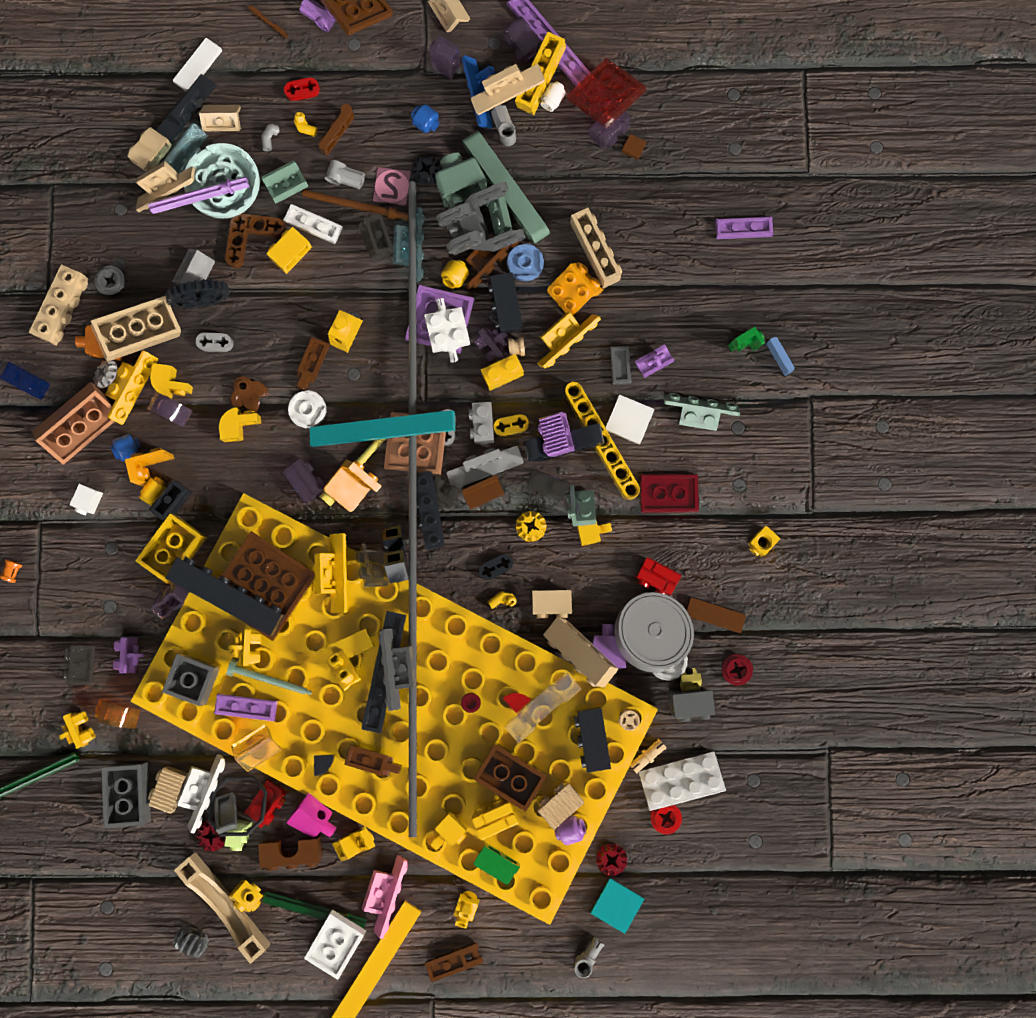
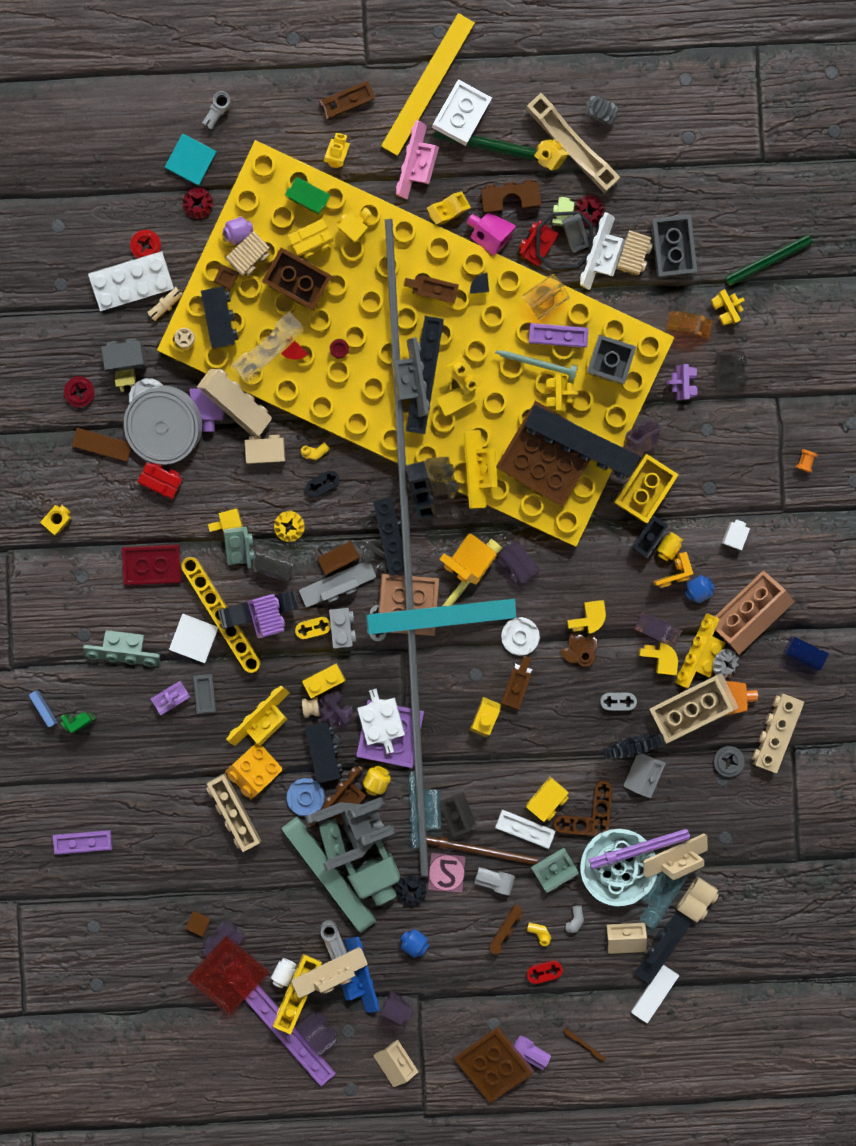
camera: 170 degrees right, 5 degrees up
(584, 781) = (226, 277): none -> reddish brown tile

